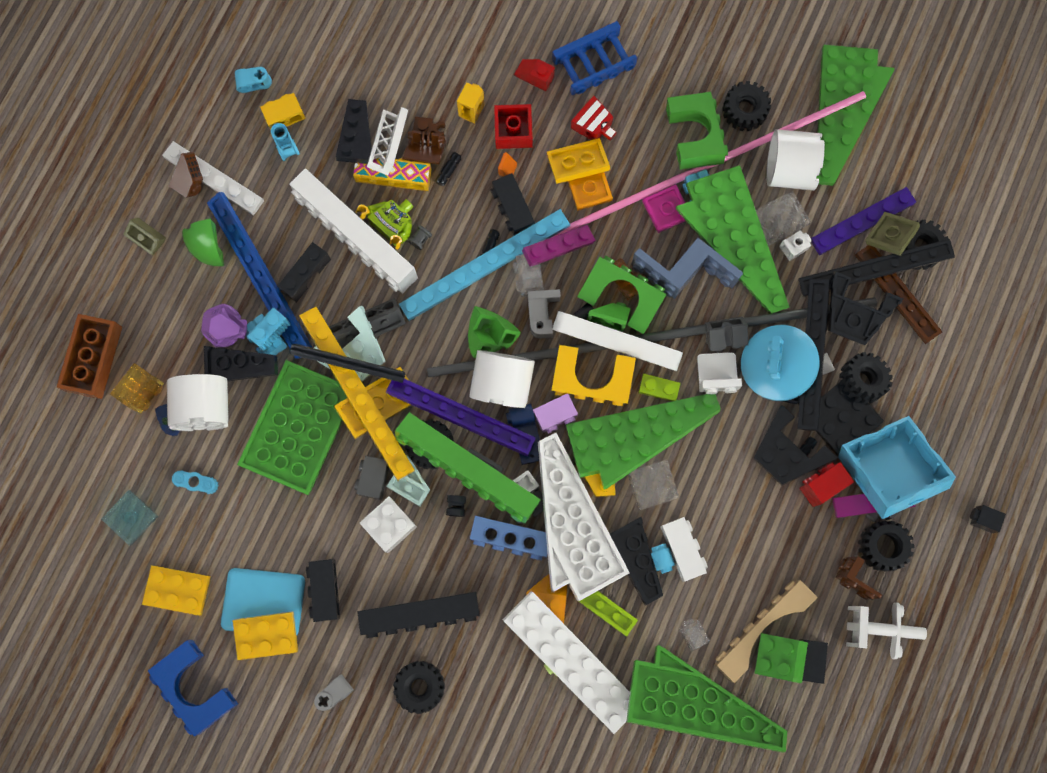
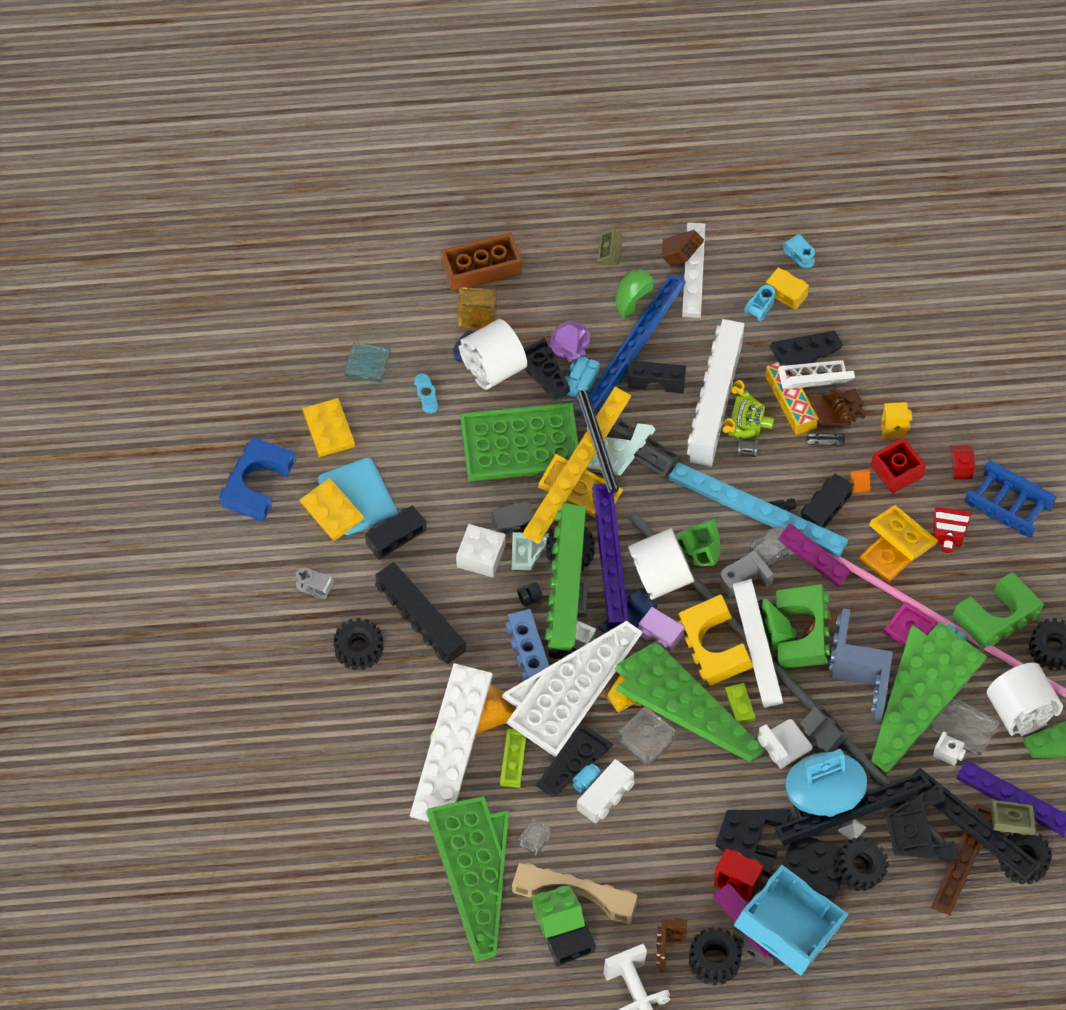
camera: 60 degrees right, 20 degrees down
(268, 329) = (588, 371): medium azure brick -> none

